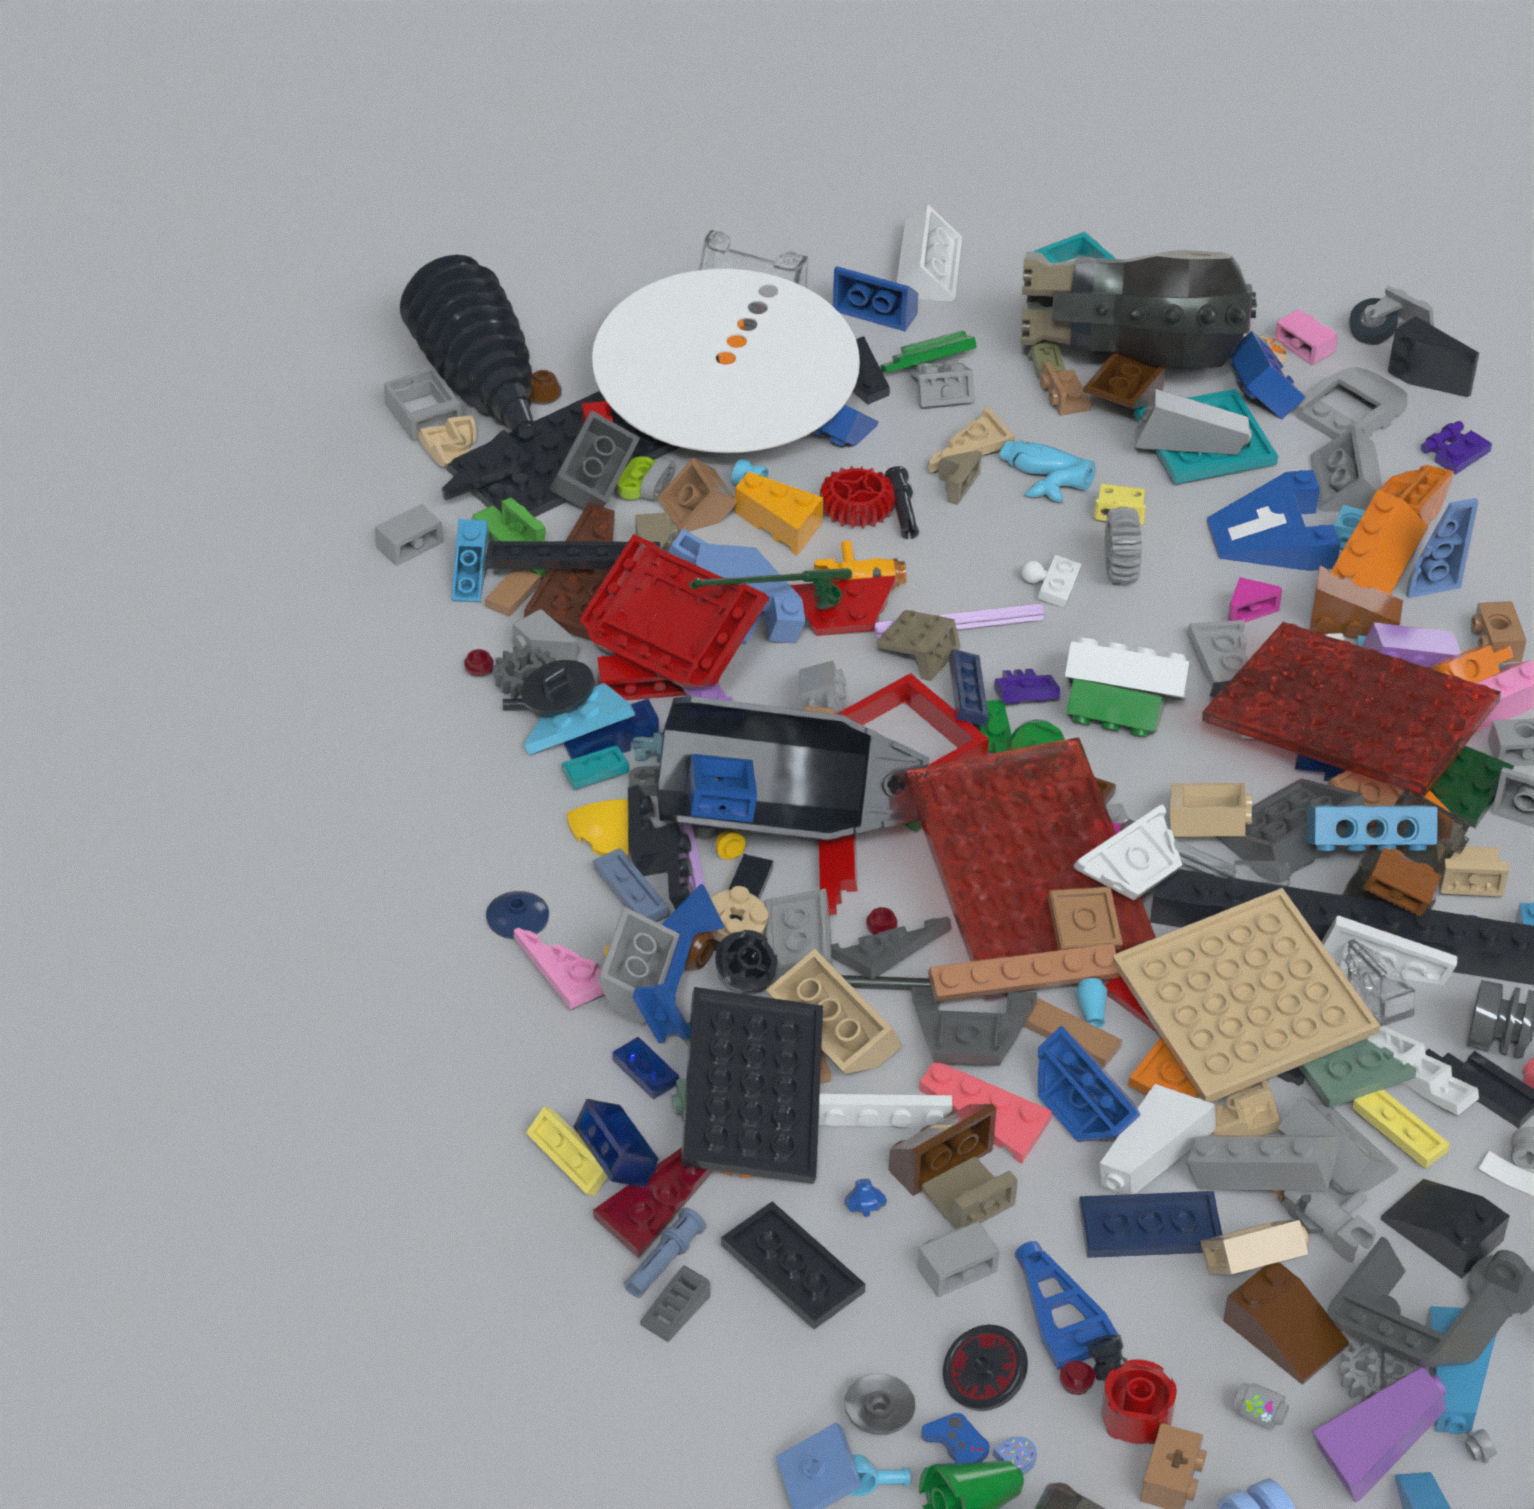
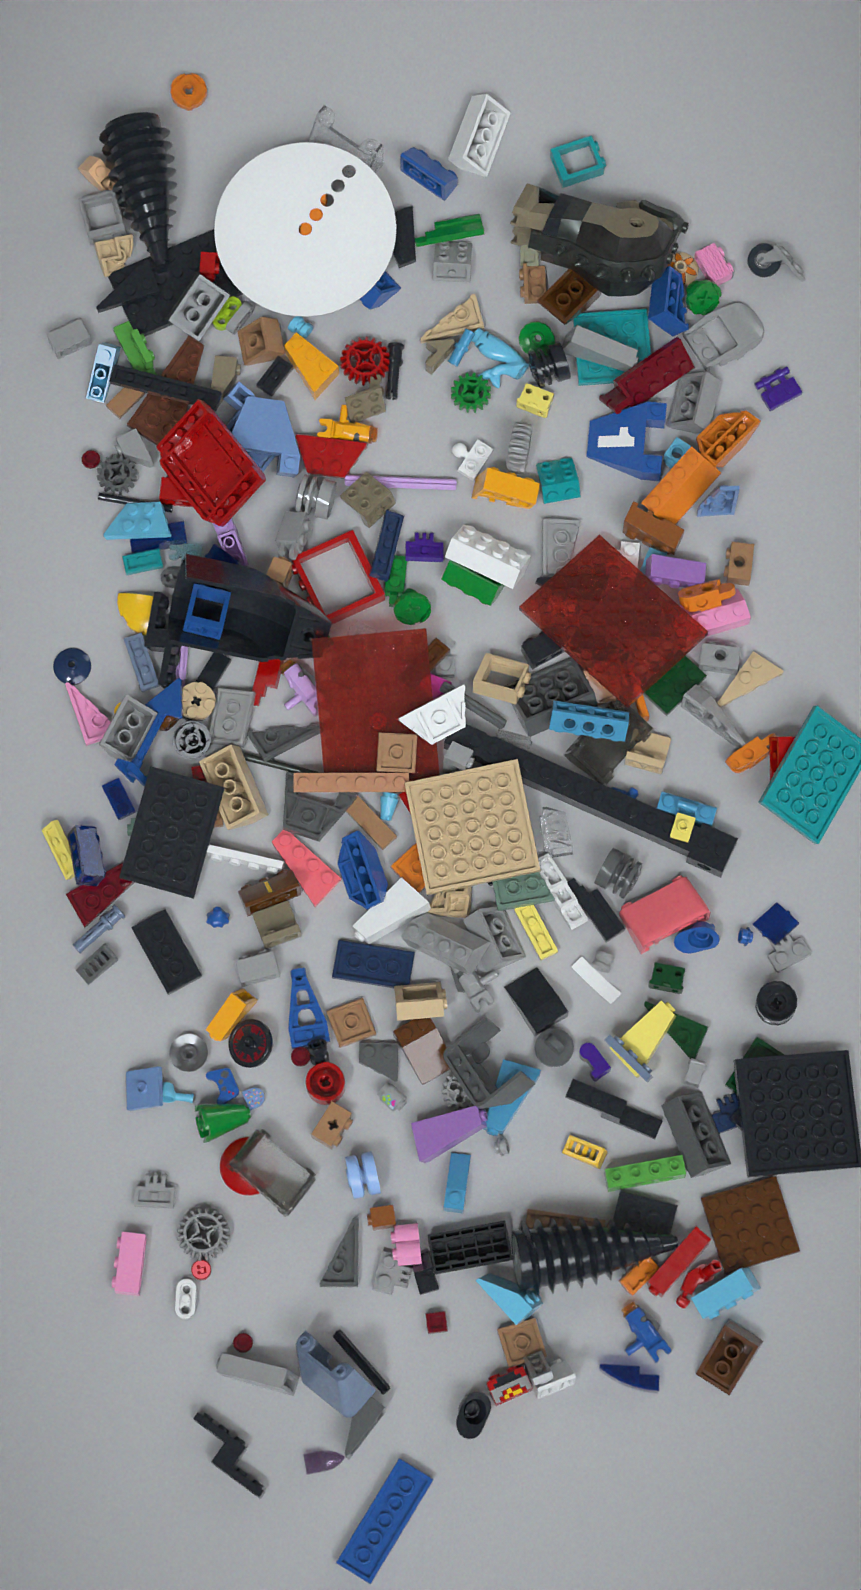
camera: 15 degrees right, 30 degrees up
(402, 358) = (96, 173): none -> light nougat slope
(512, 269) = (188, 101): none -> orange plate
(545, 388) = (185, 215): reddish brown cone -> none
(557, 687) = (131, 499): black shield -> none
(731, 528) = (274, 376): none -> black plate
(829, 592) = (316, 453): dark green piece -> none
(842, 643) = (316, 496): none -> light grey wheel
(878, 532) = (366, 403): none -> dark tan plate
(881, 920) = (283, 719): dark red plate -> none
(902, 876) = (302, 683): none -> lavender piece
(935, 1330) = (230, 1014): none -> light orange slope
(991, 463) = (461, 347): none -> dark azure pin
(1024, 508) = (470, 400): none -> green gear
(1097, 426) = (528, 339): none -> green dish
(1118, 596) = (506, 487): none -> light orange wedge
(1127, 455) = (549, 364): none -> black wheel
(1146, 1313) = (351, 1023): none -> medium nougat tile
(1185, 906) = (458, 758): none -> light grey brick
(1195, 583) = (558, 480): none -> teal bracket
(1214, 1354) = (380, 1058): none -> dark grey wing
(1254, 600) = (590, 504): dark pink slope -> none
(1257, 766) = (540, 650): none -> black brick
(1274, 448) = (649, 376): none -> dark red hinge
(1308, 362) = (702, 296): none -> green tile
(1402, 881) = (589, 771): dark orange brick -> none
(1405, 956) = (571, 809): white wing -> none
(1432, 359) = (785, 309): black slope -> none

